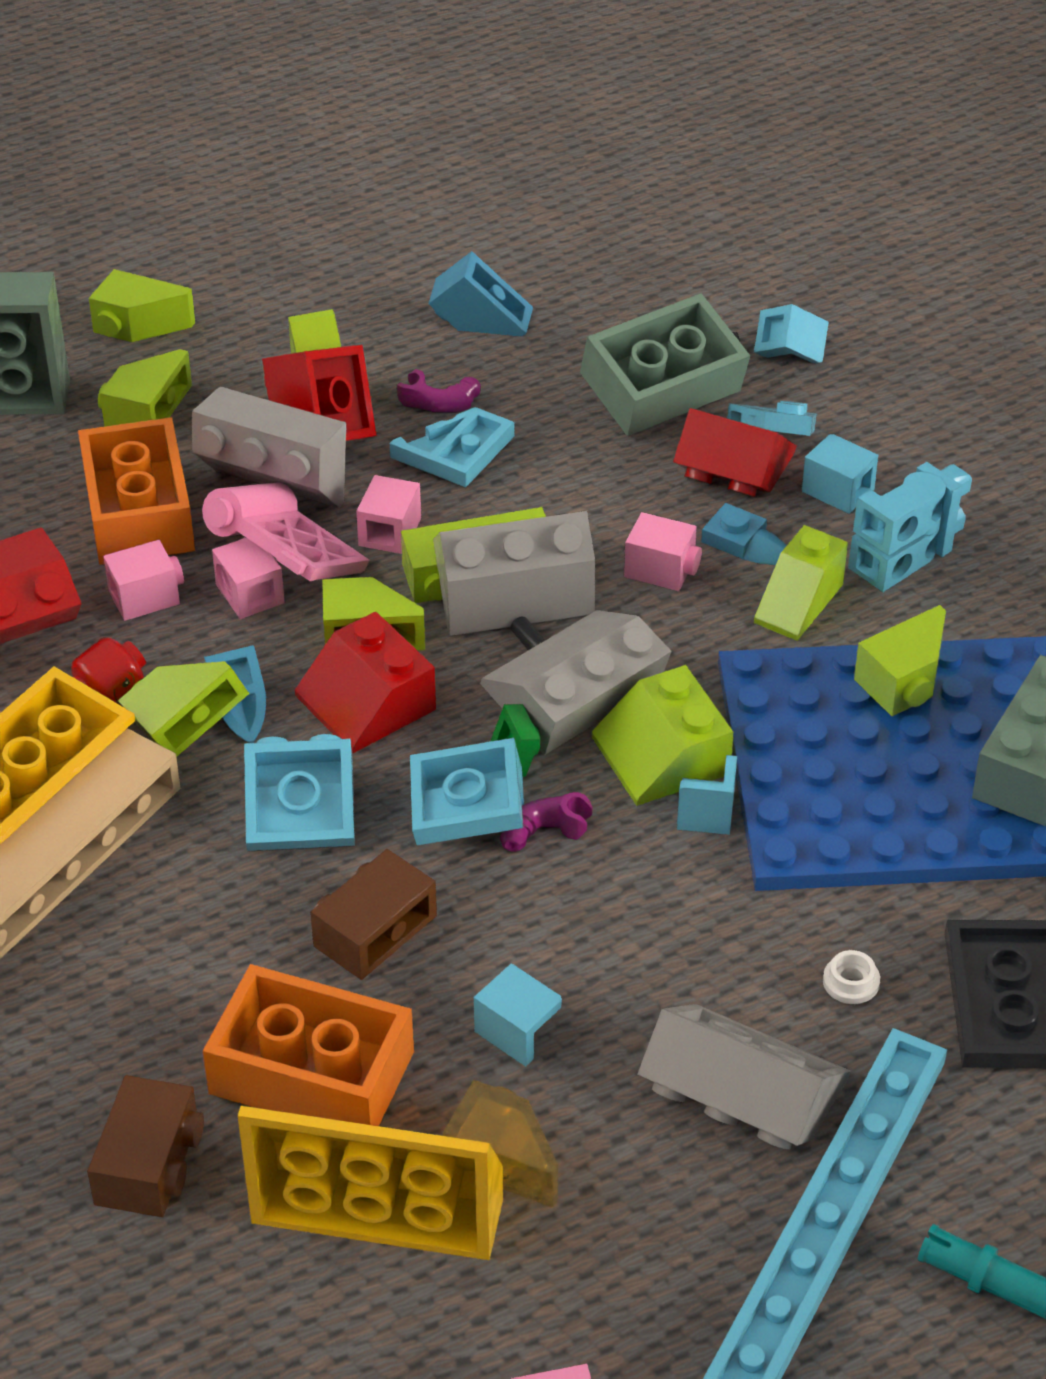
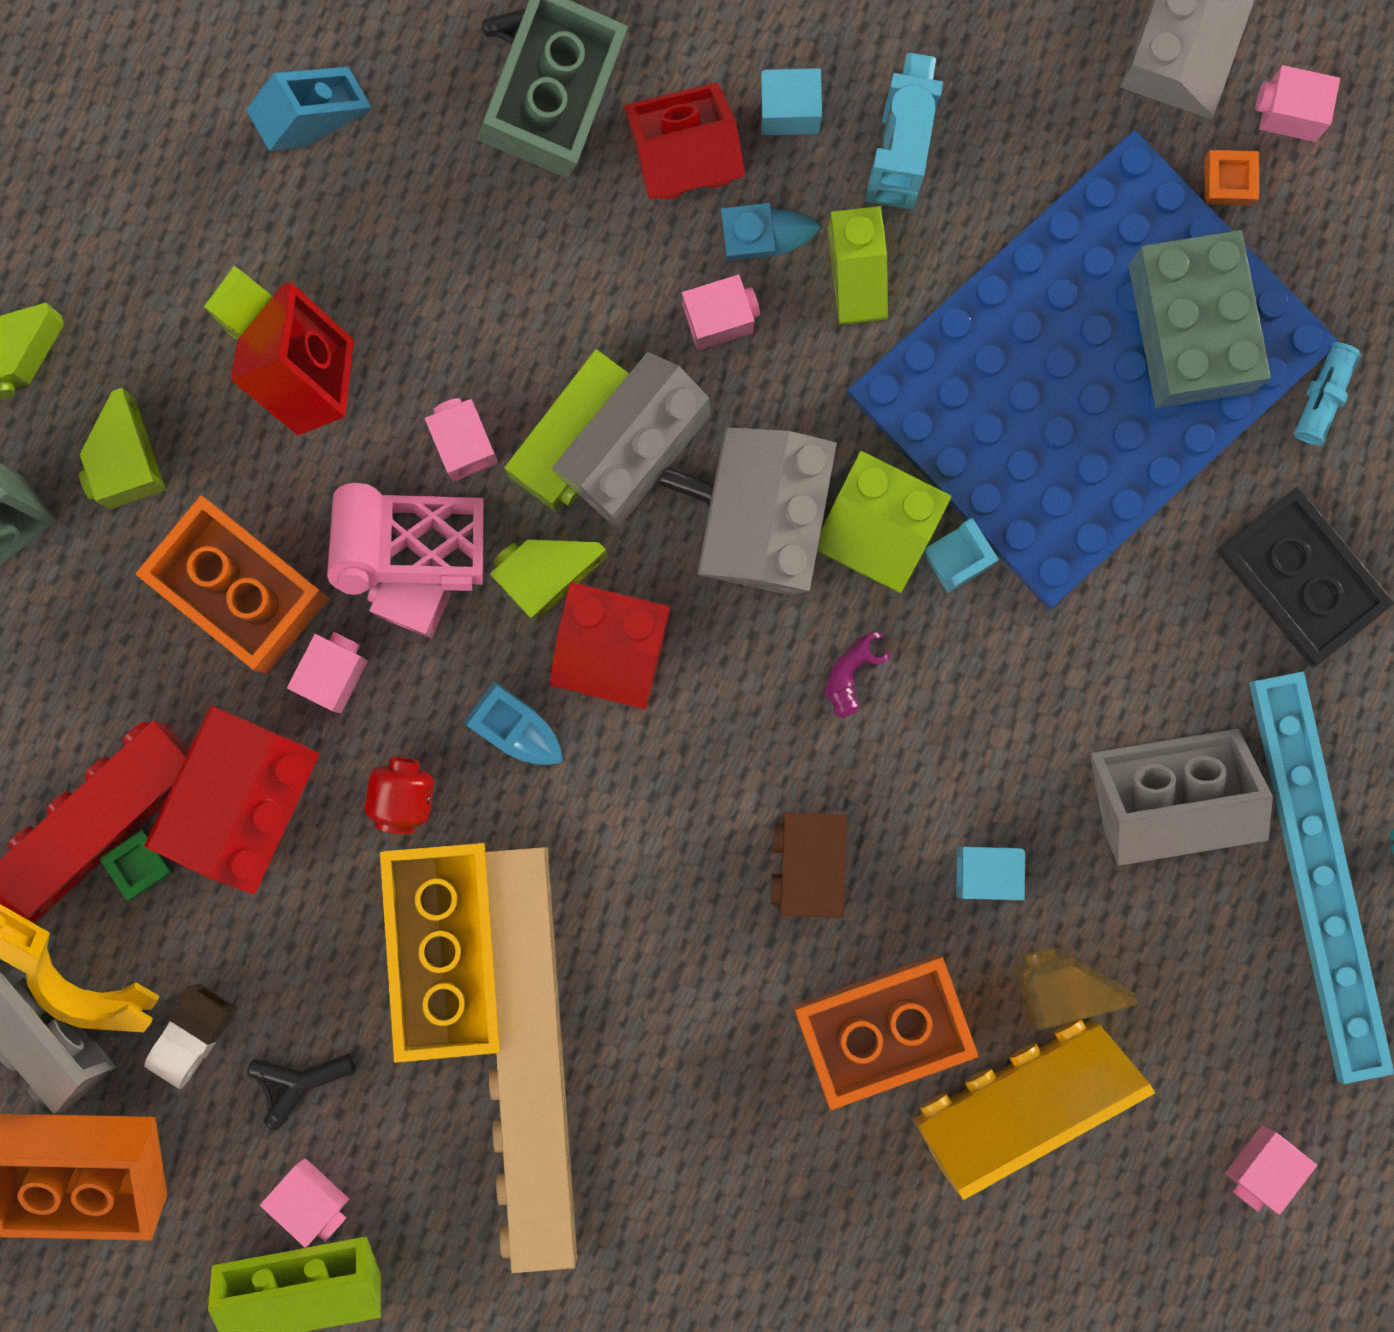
camera: 40 degrees left, 40 degrees up
(145, 1146) = (832, 1188): reddish brown brick -> none
(183, 701) = (489, 790): lime slope -> none
(271, 444) = (314, 461): light grey slope -> none
(299, 793) = (658, 797): medium azure plate -> none
(452, 399) = (386, 250): magenta piece -> none
(456, 447) = (443, 309): medium azure wing -> none
(466, 791) = (791, 705): medium azure plate -> none
(516, 724) = (774, 613): green plate -> none
(787, 418) = (694, 76): medium azure wing -> none
(854, 966) = (1199, 648): white plate -> none
(902, 661) = (1024, 311): lime slope -> none

